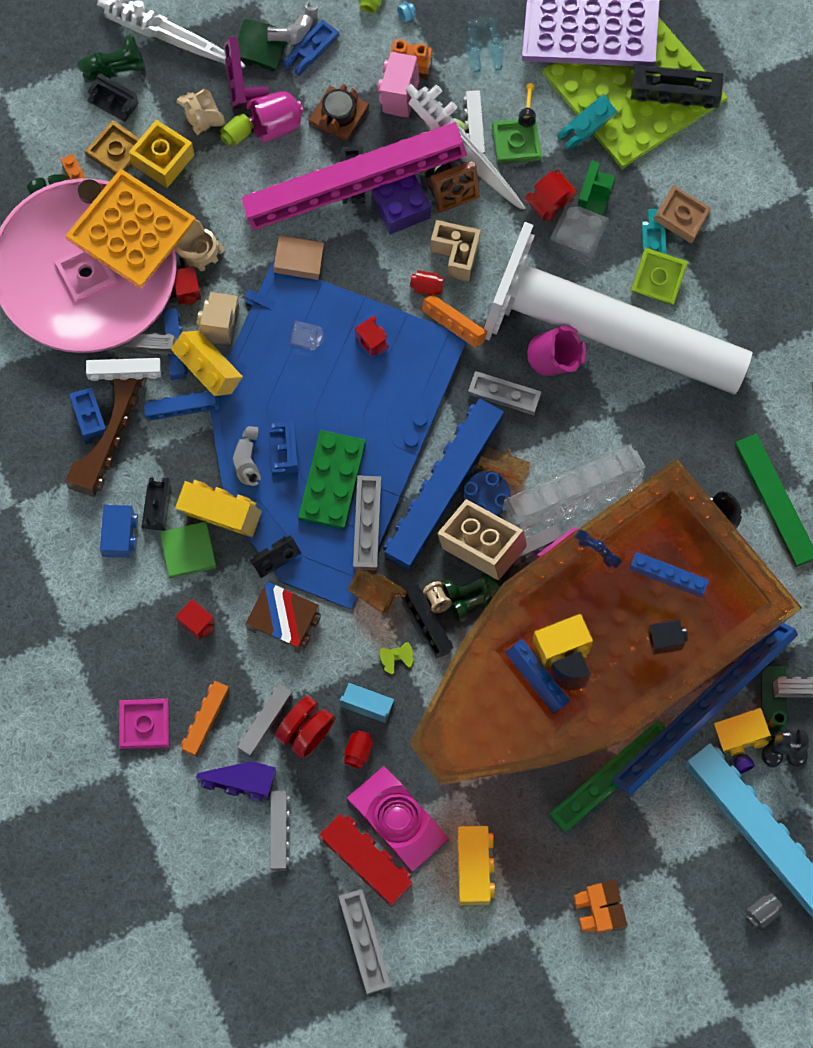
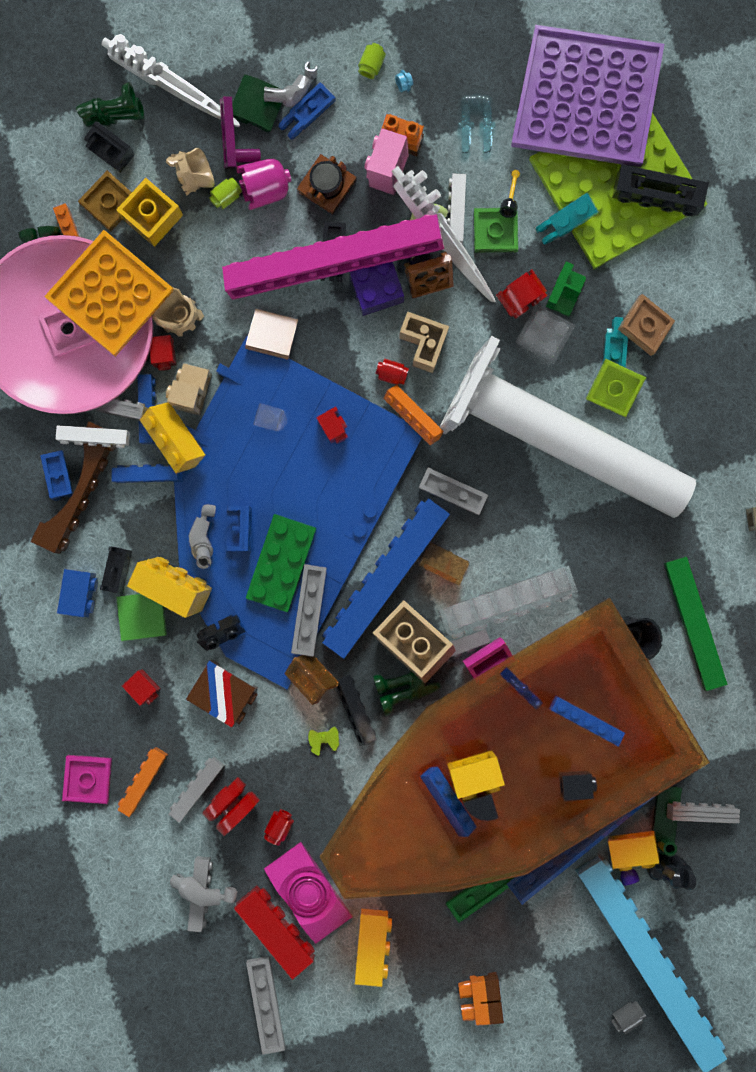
camera: 10 degrees right, 15 degrees up
(89, 190) = (71, 249): dark brown tile -> none
(244, 778) = (172, 844): dark purple slope -> none
(280, 824) = (194, 892): none -> light grey arm
(366, 702) = (291, 782): medium azure panel -> none
(431, 595) = (366, 689): tan bush -> none
(487, 491) = (424, 591): blue dish -> none
(556, 351) = (507, 460): dark pink cylinder -> none

